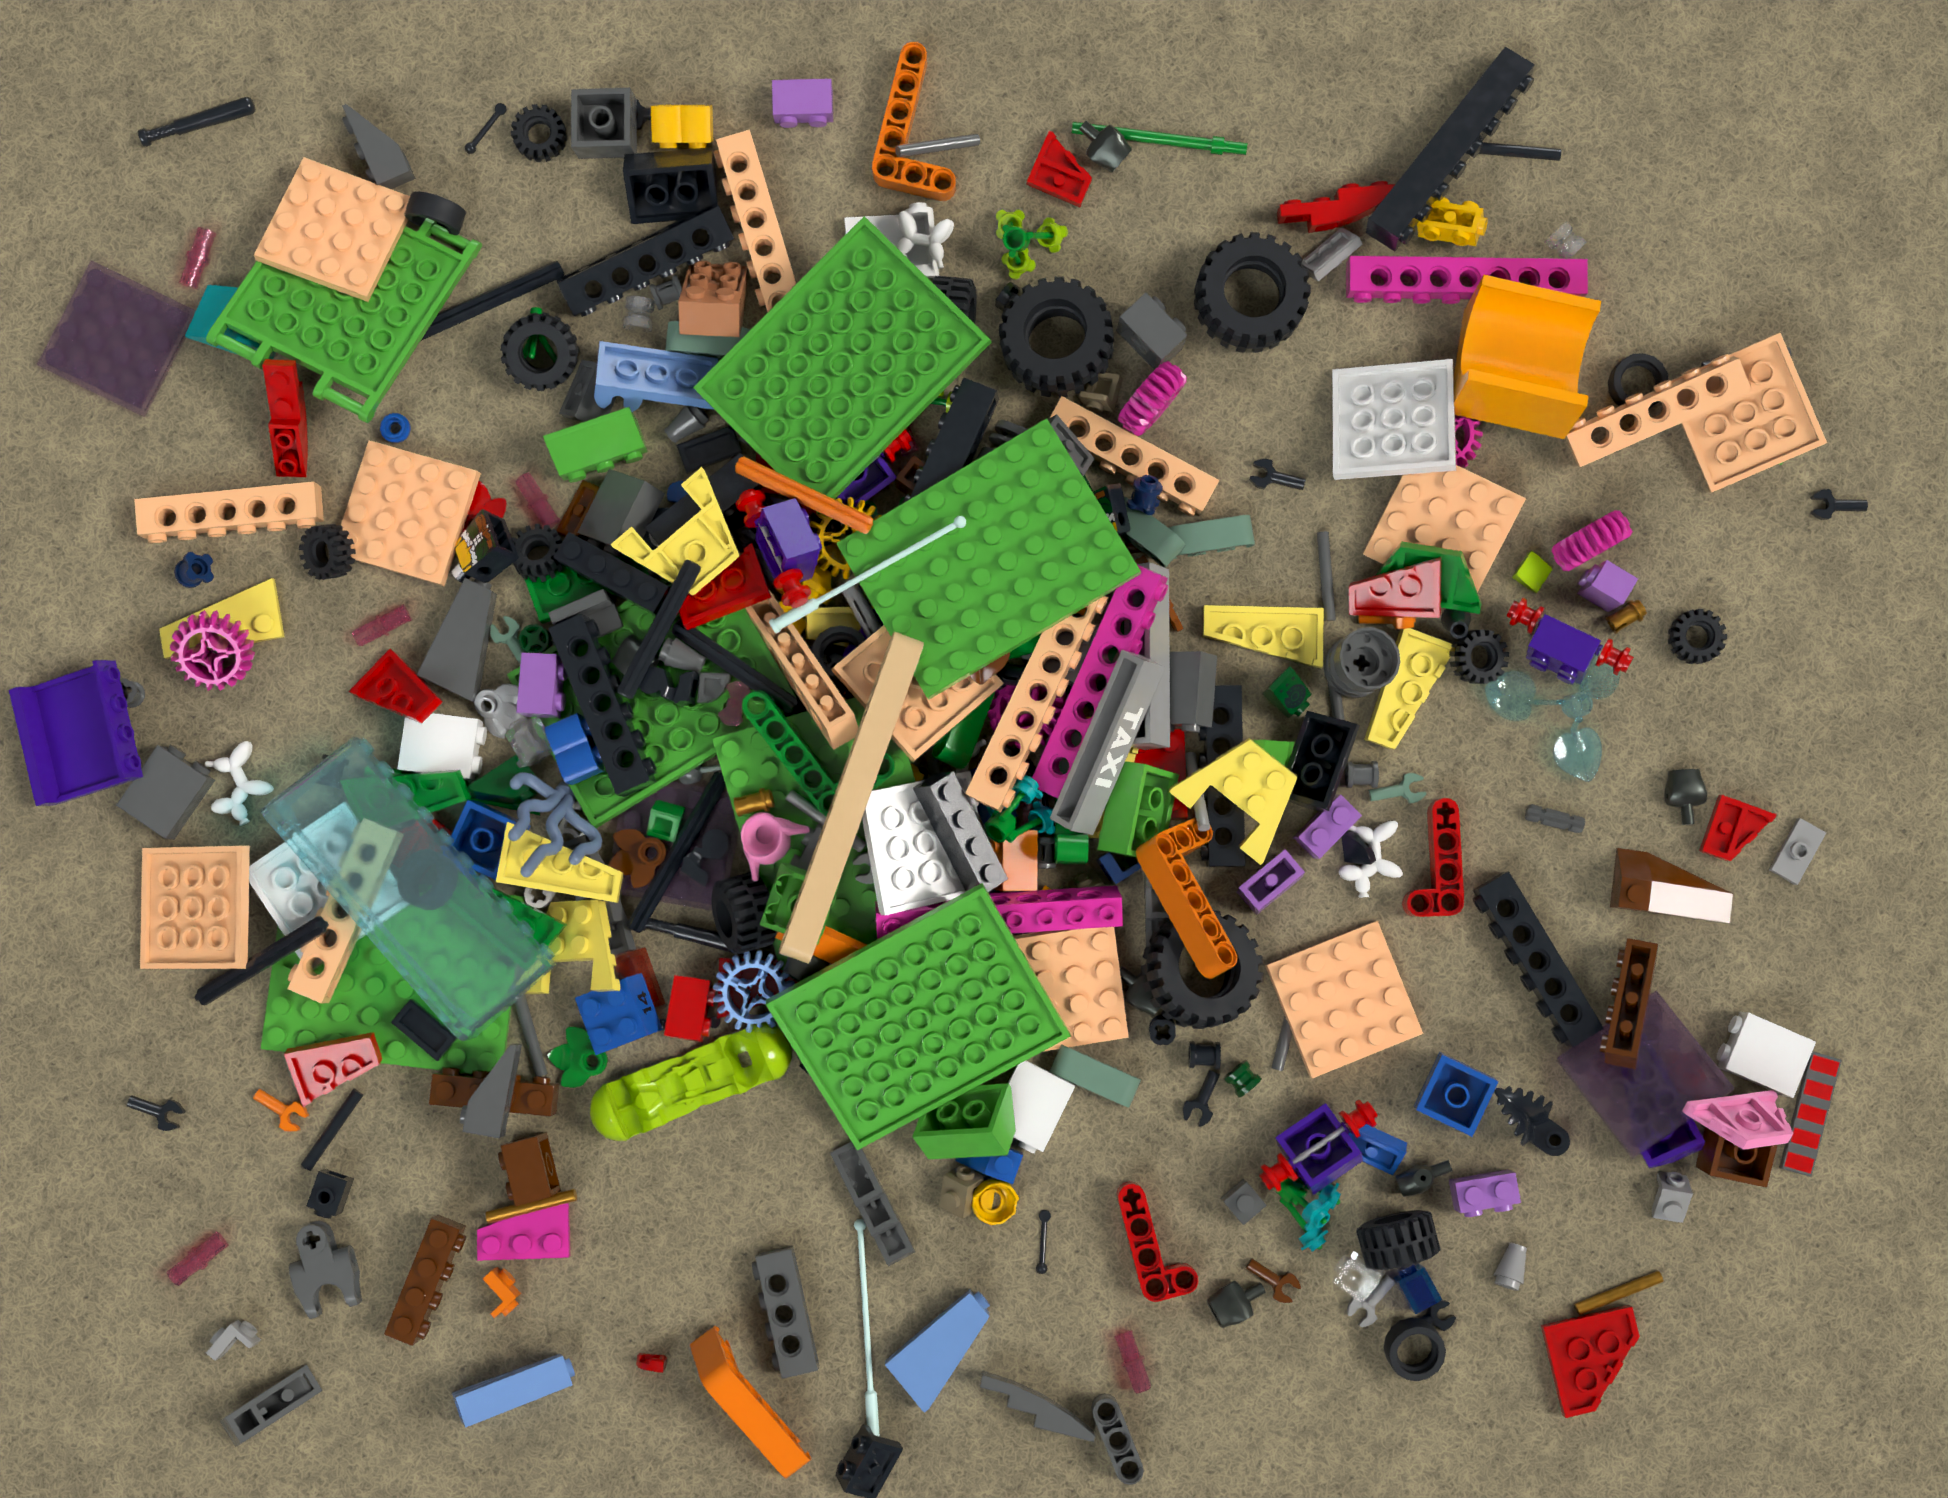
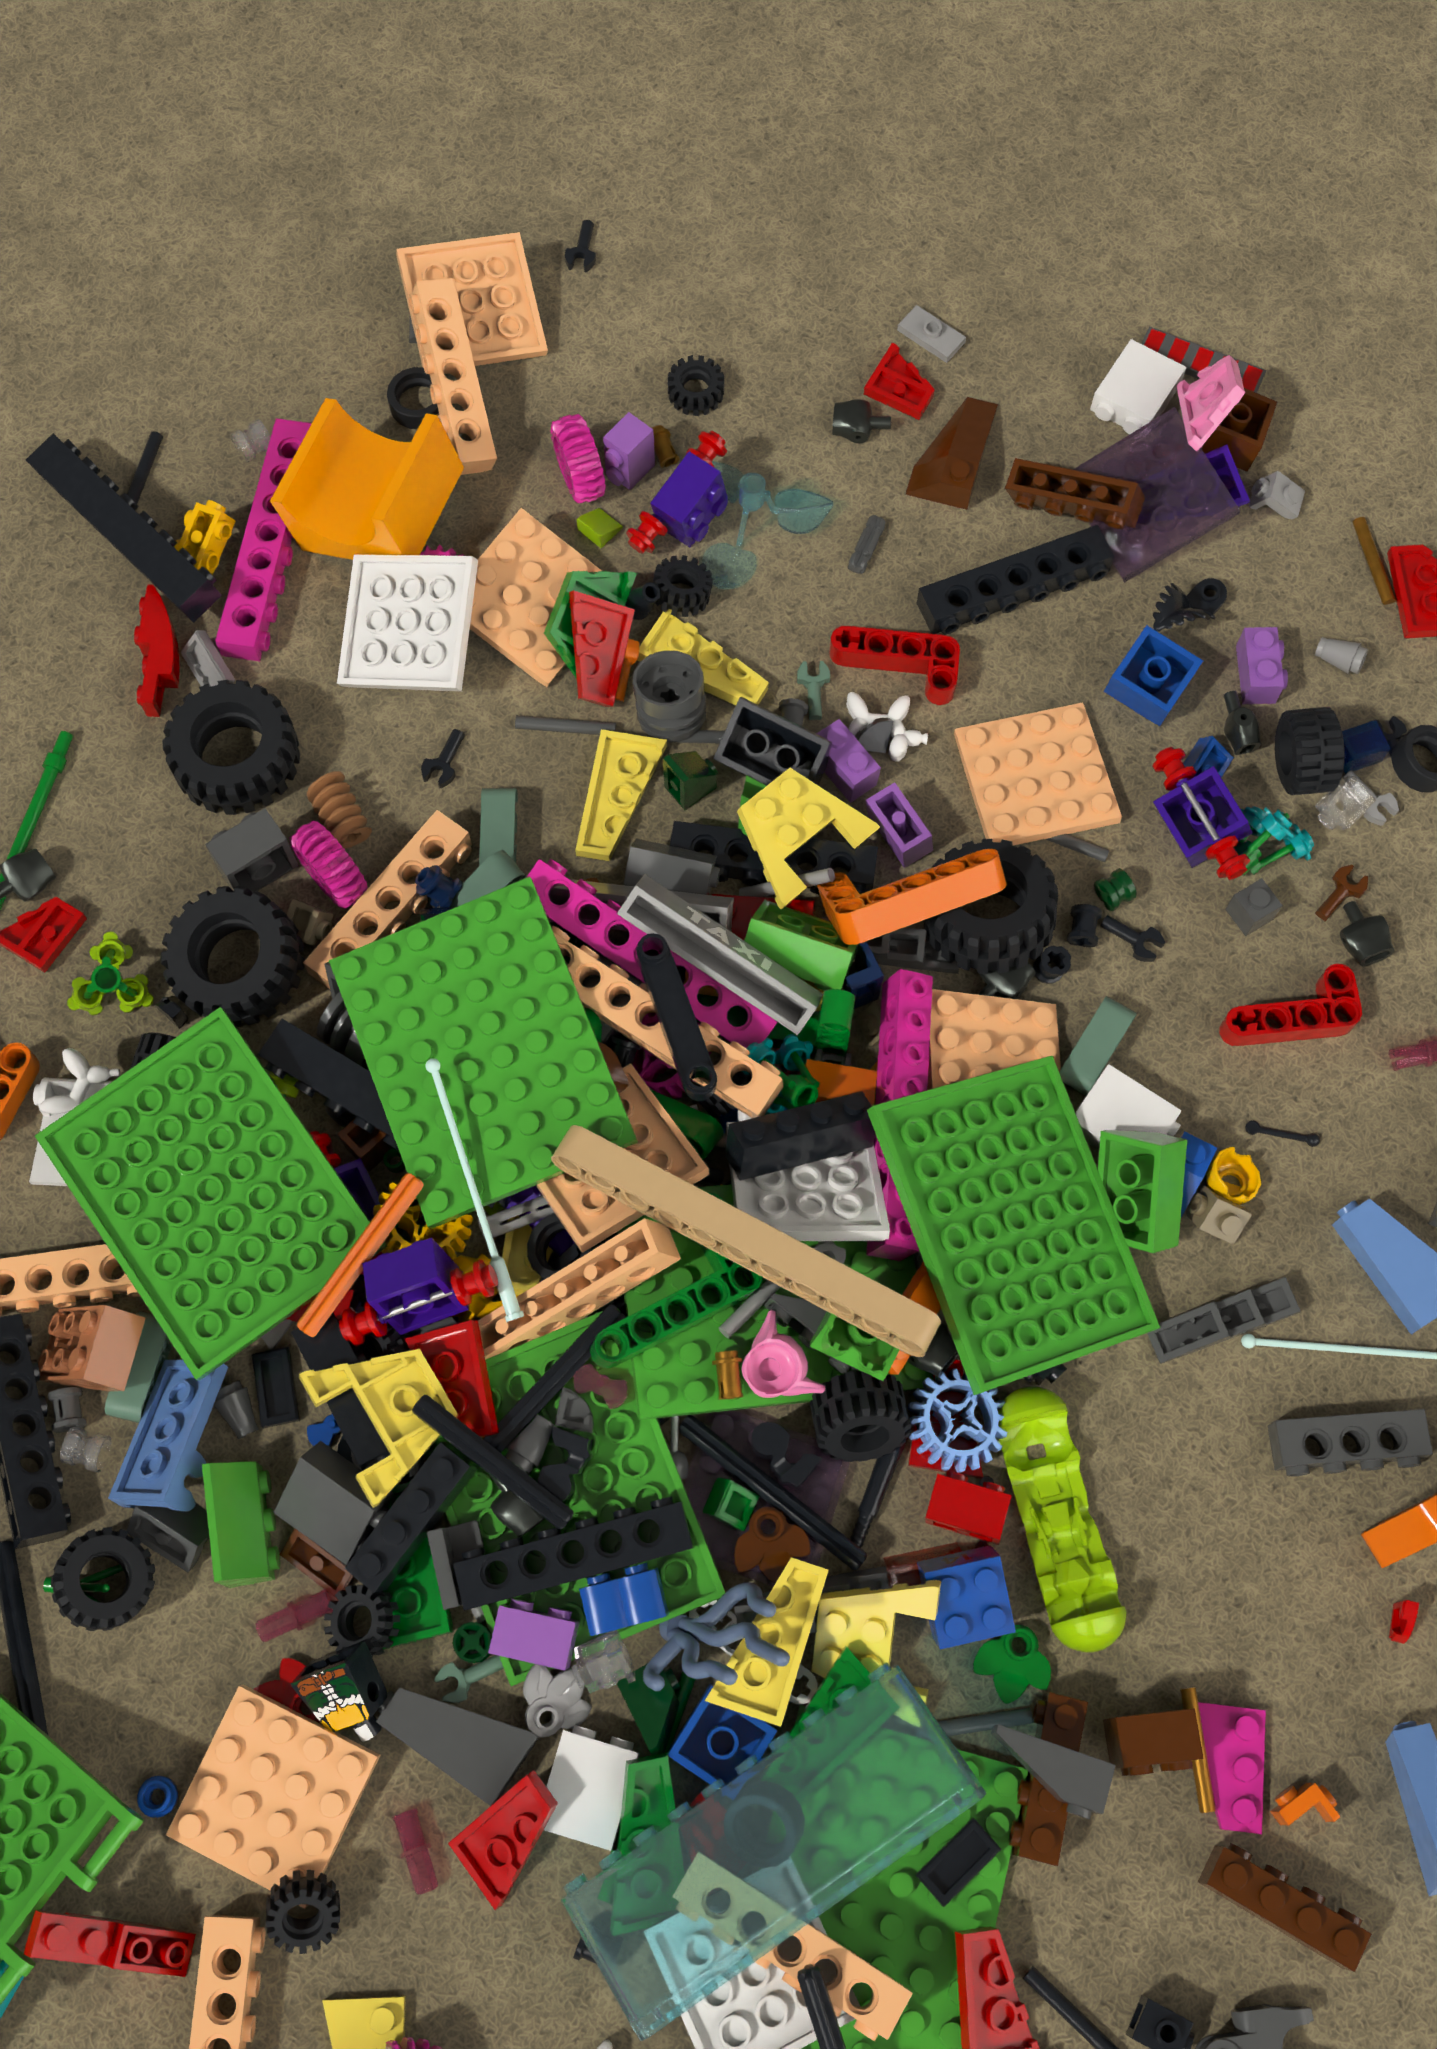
camera: 80 degrees left, 15 degrees down
(1037, 713) = (676, 1017): none -> black piece
(1207, 395) = (337, 809): none -> medium nougat piece

